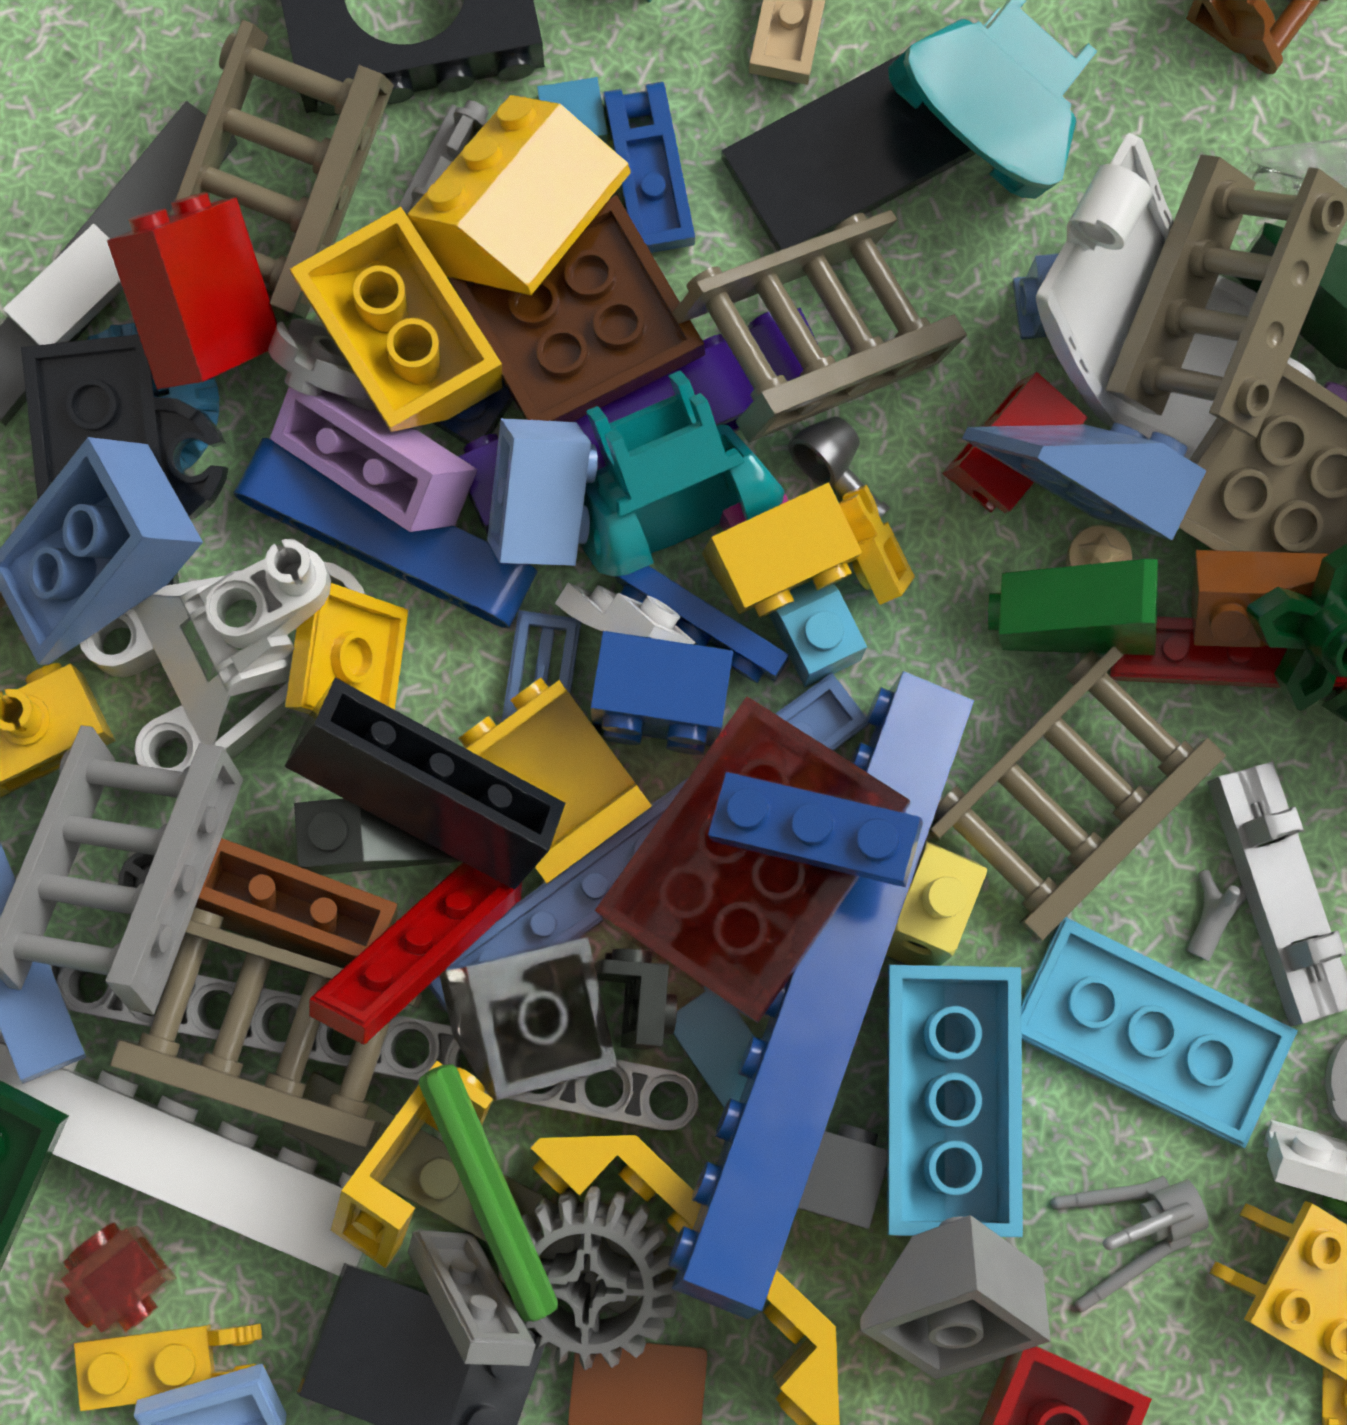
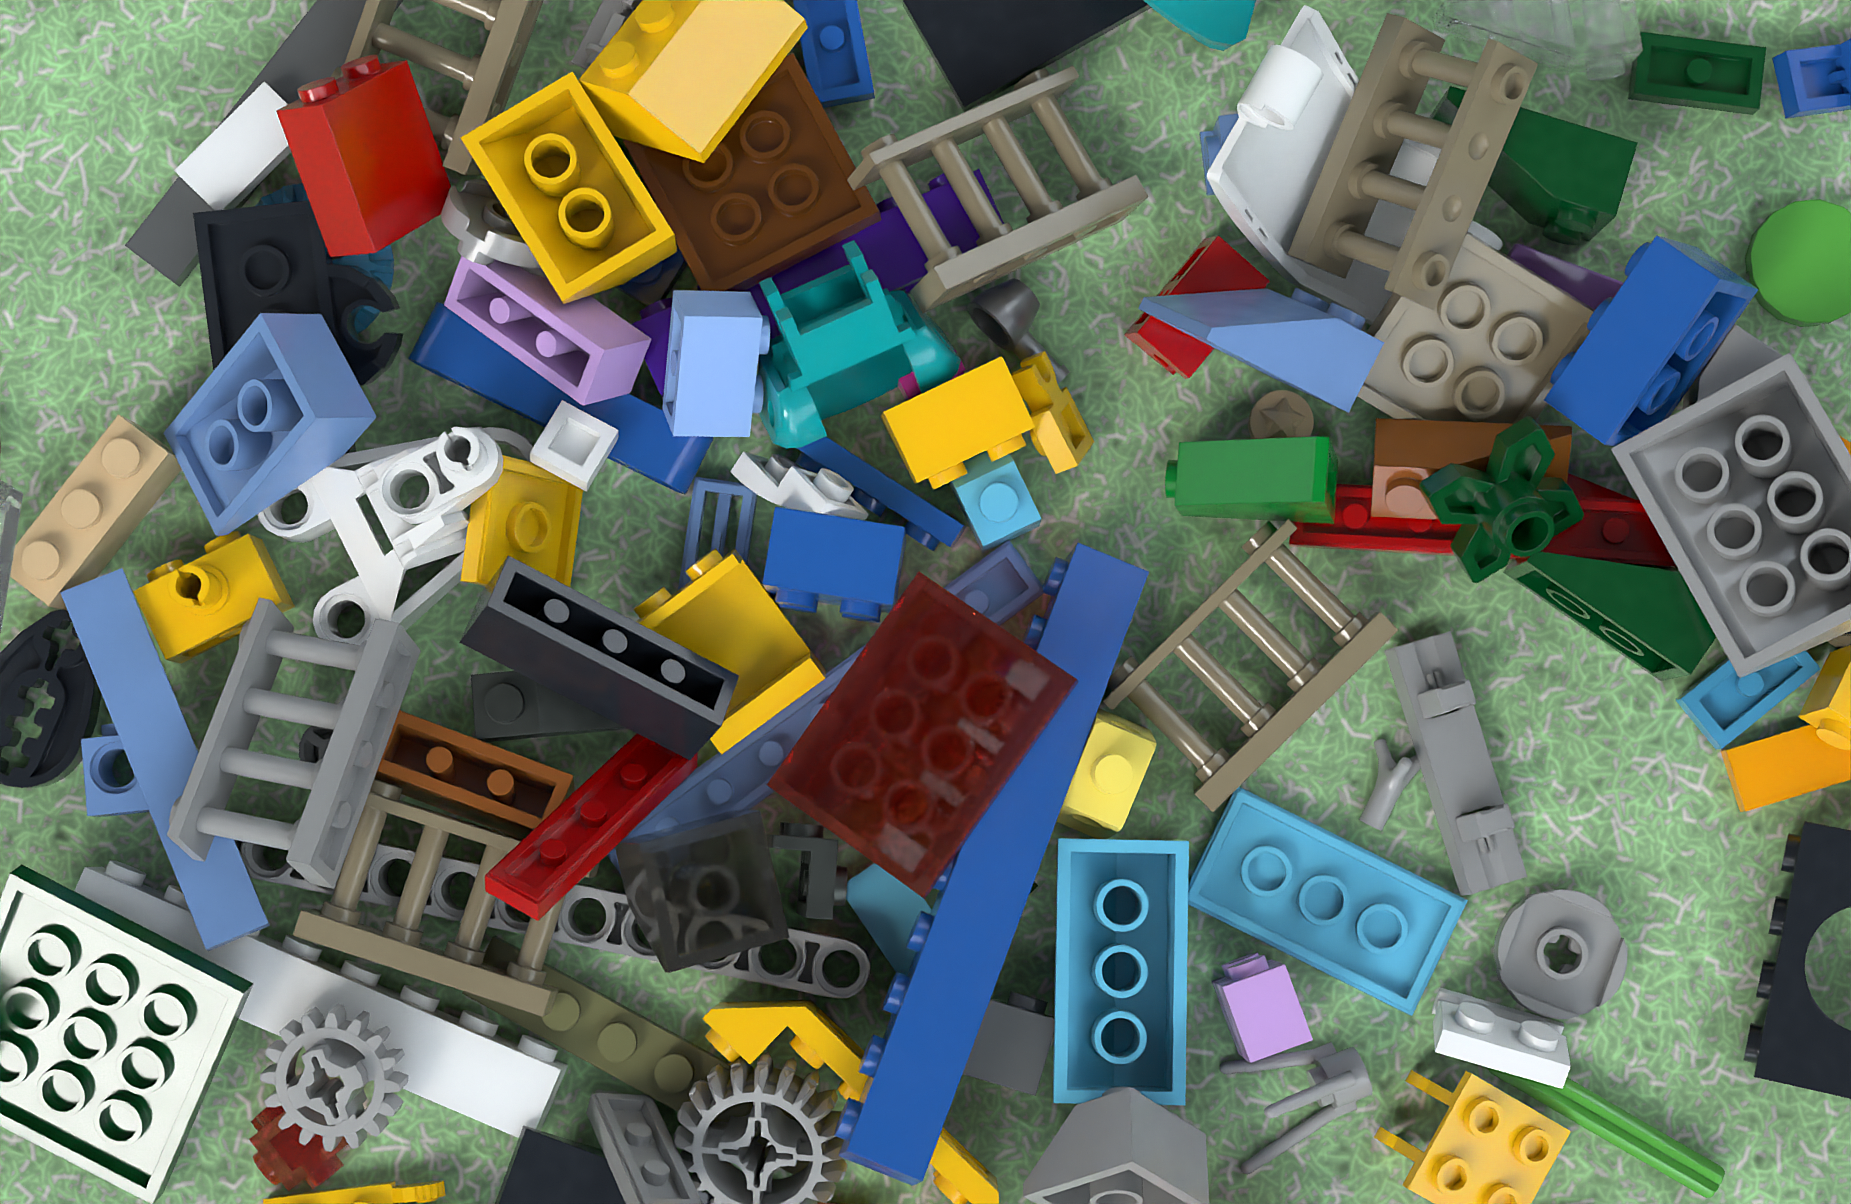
camera: 10 degrees right, 5 degrees up
(154, 1238) = (339, 1050): none -> light grey gear
(367, 1211) = (542, 1079): yellow panel -> none
(399, 575) = (574, 445): none -> white tile
(488, 1192) = (660, 1062): bright green axle -> none
(816, 829) = (983, 708): blue plate -> none
(1095, 1137) = (1260, 1007): none -> lavender brick

